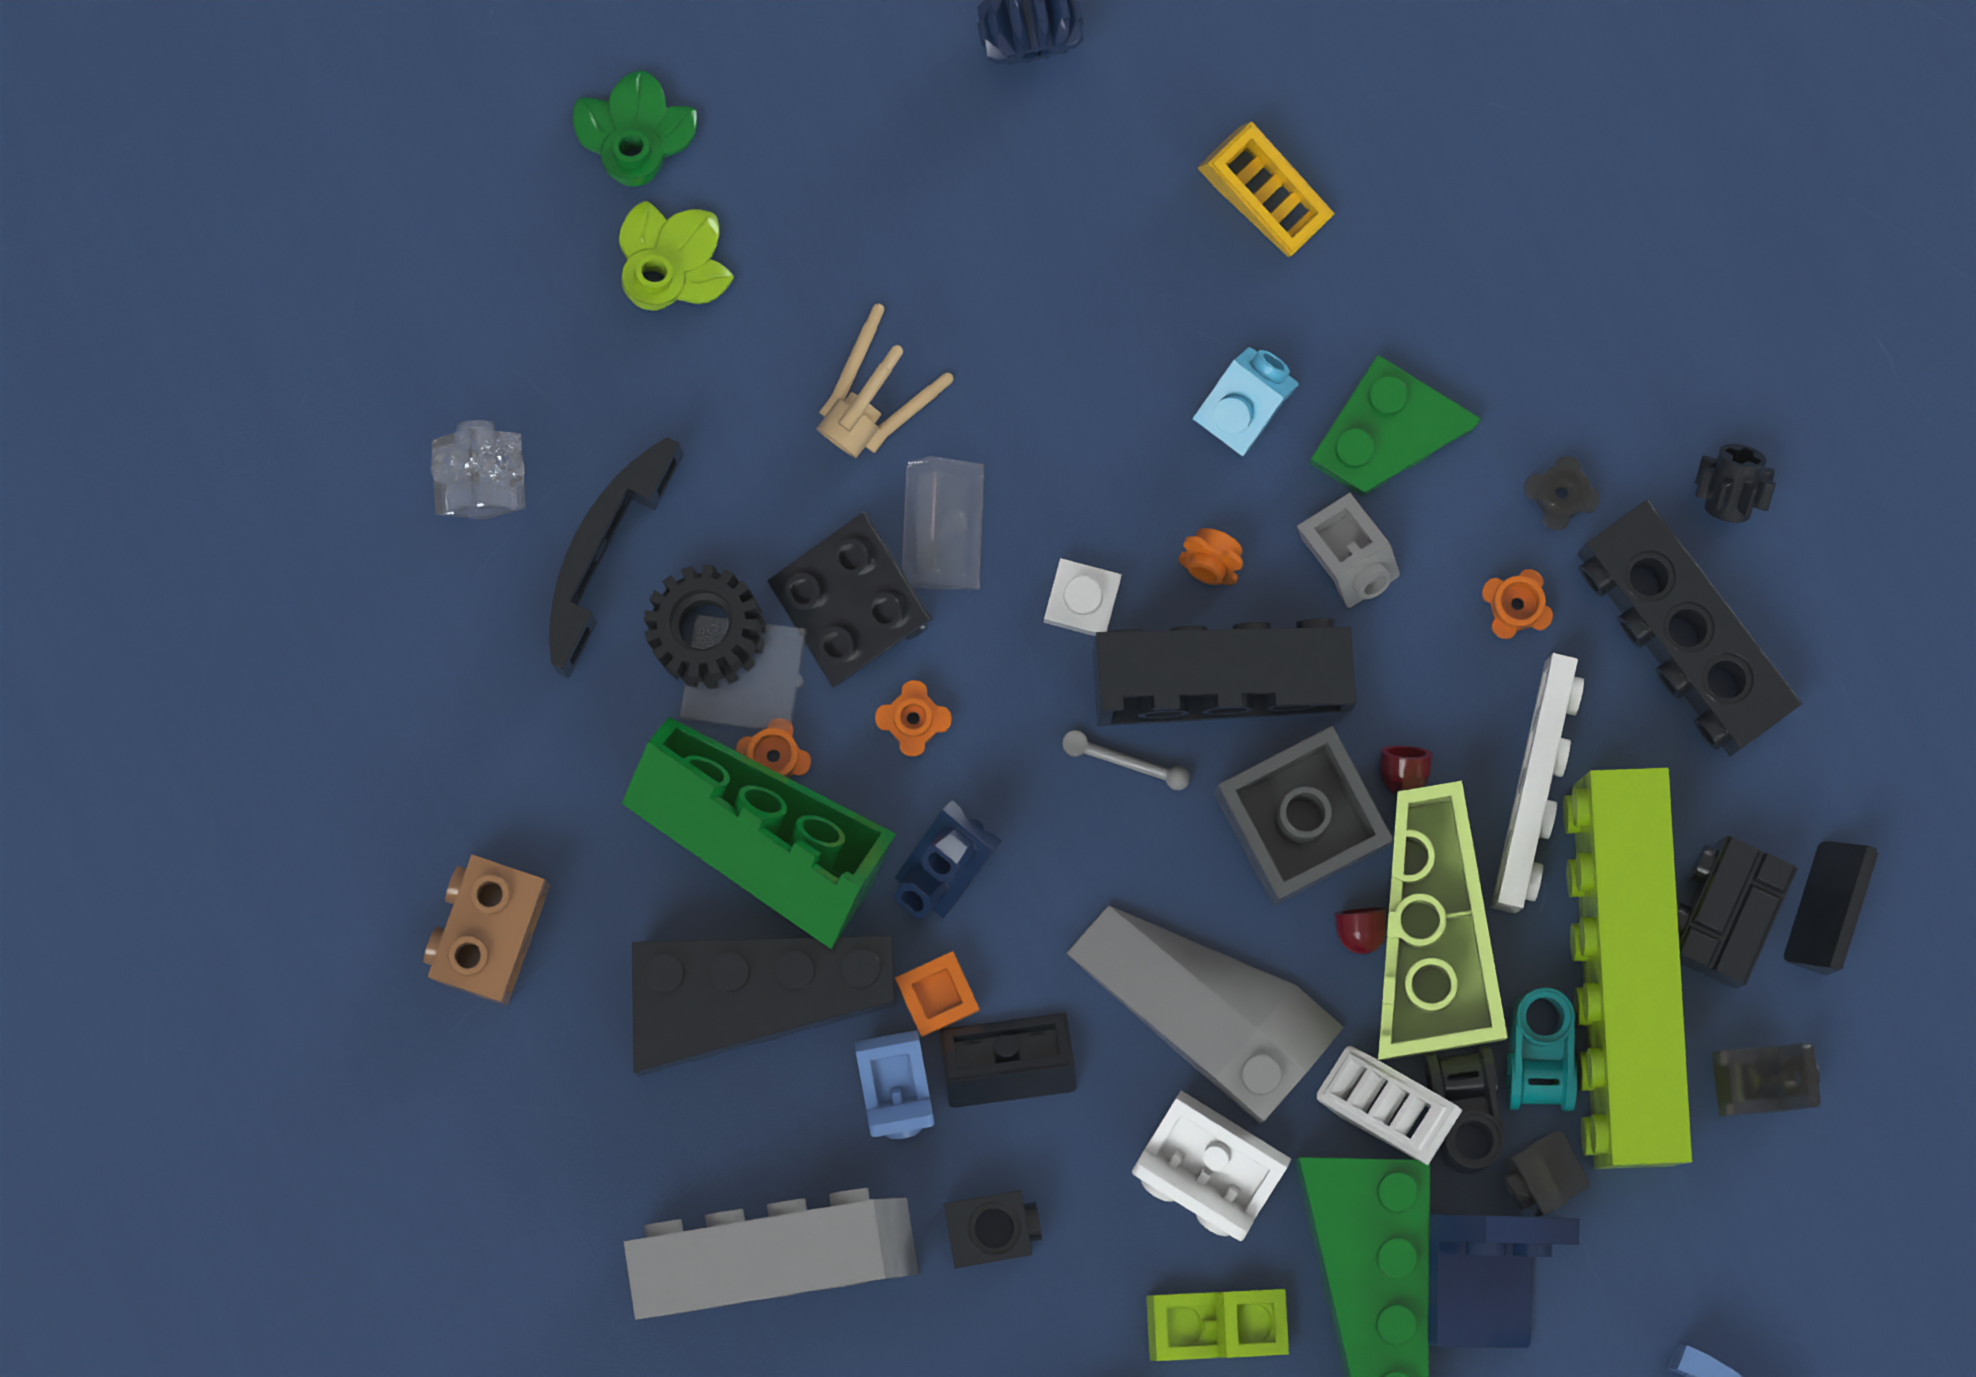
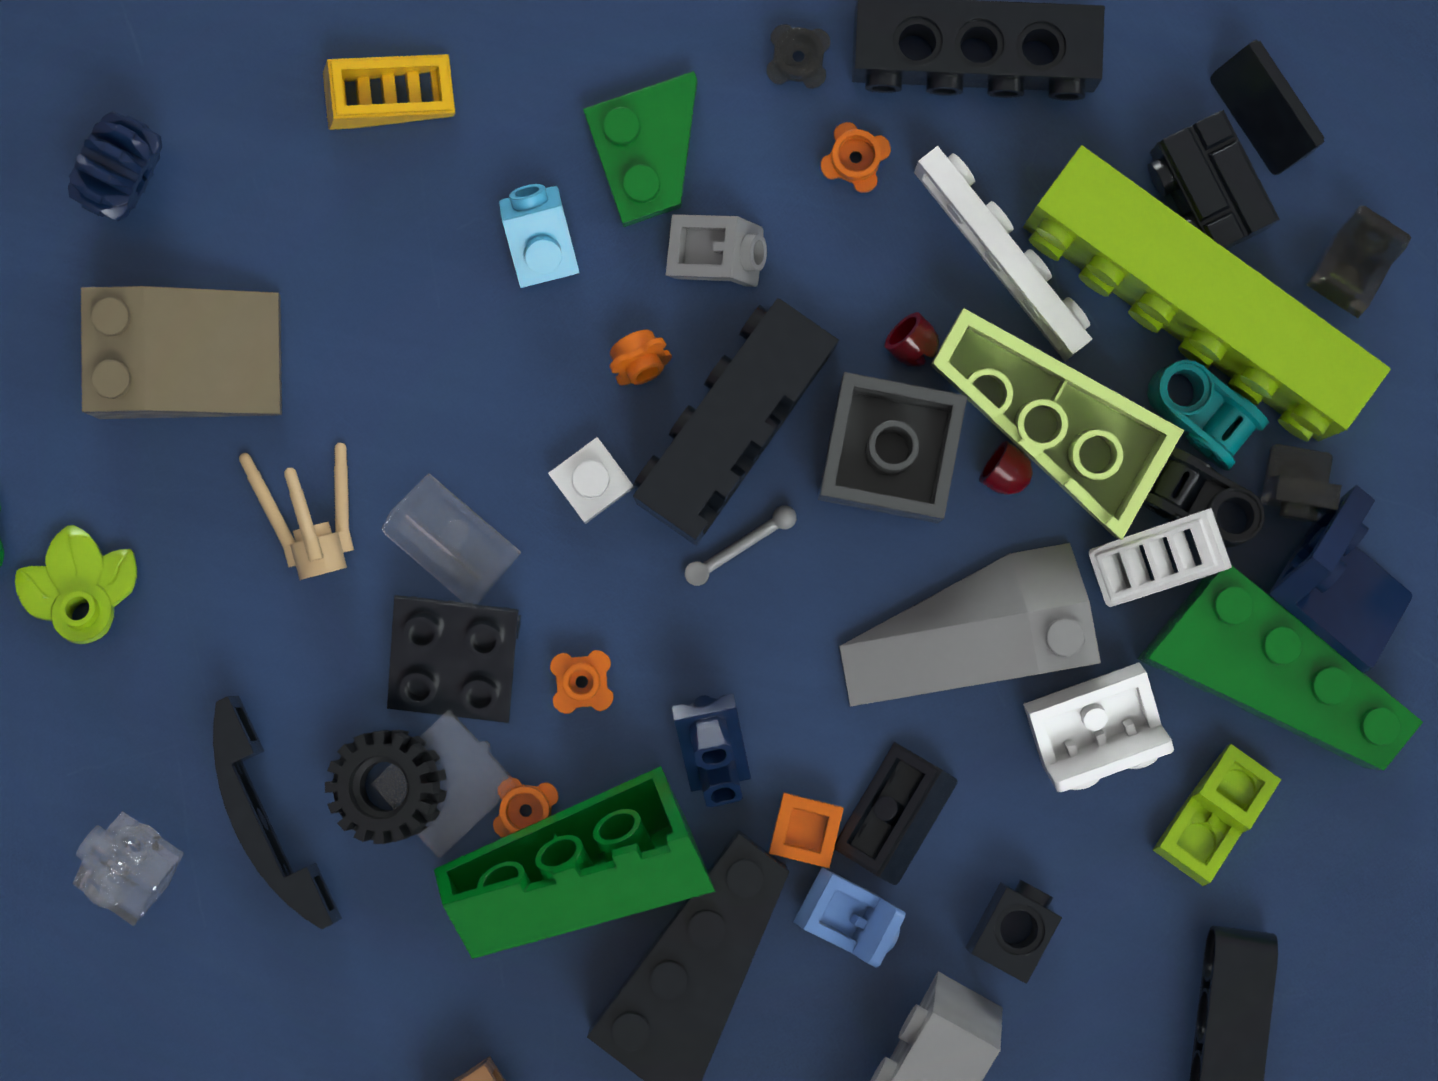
camera: 50 degrees left, 5 degrees up
(922, 191) = (180, 352): none -> dark tan slope

